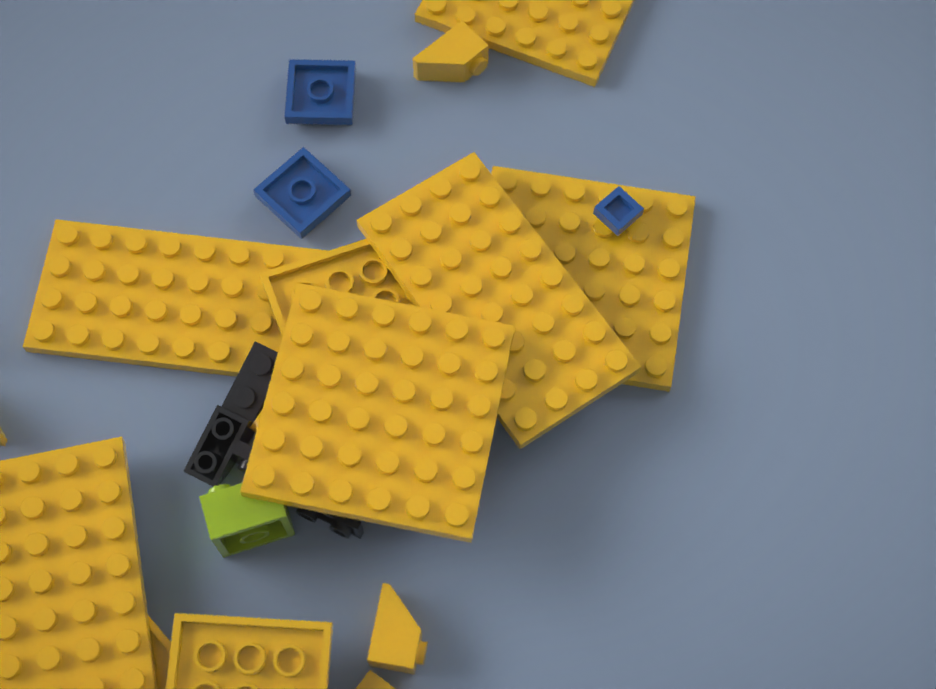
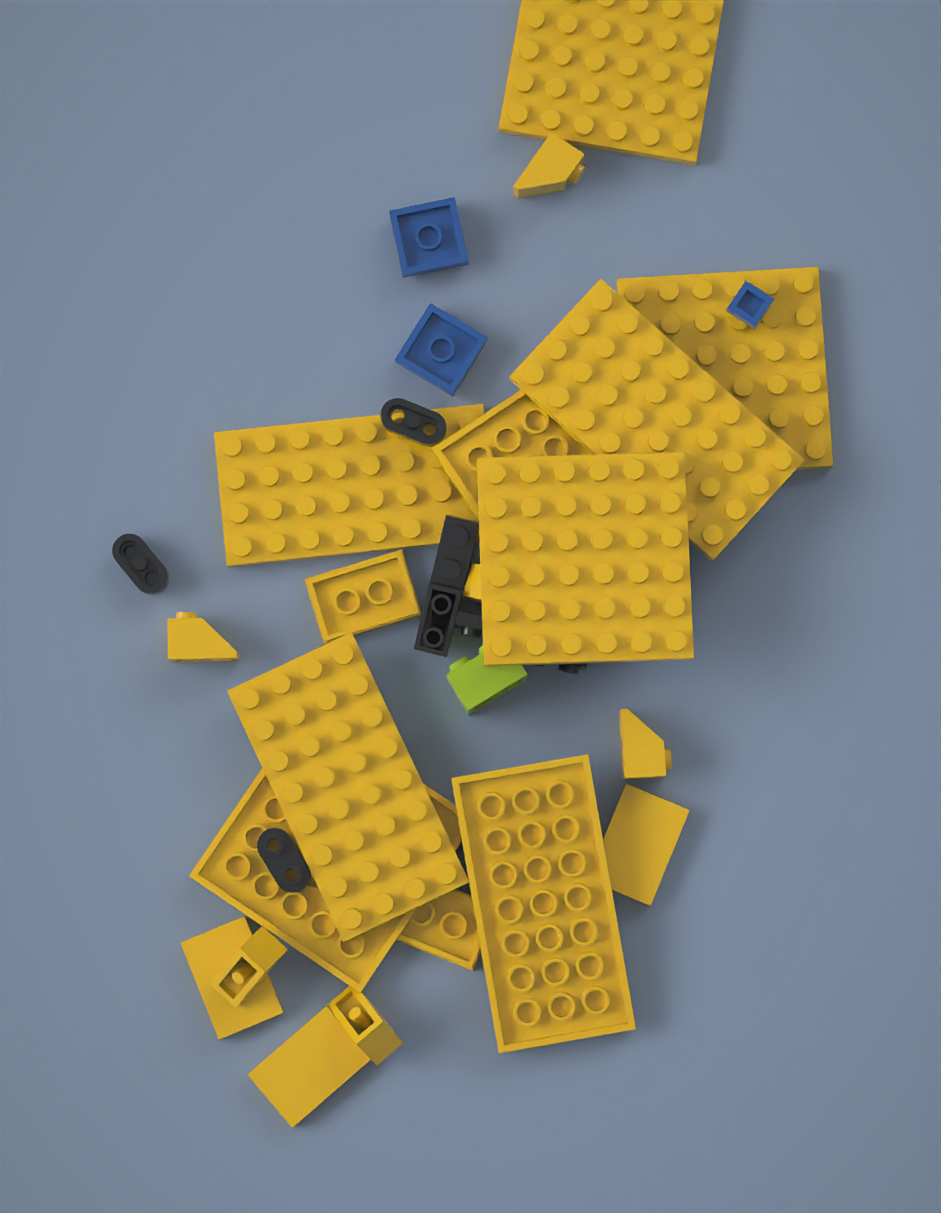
camera: 10 degrees left, 15 degrees up
(152, 408) = (363, 596): none -> yellow tile
(253, 248) = (414, 421): none -> black plate

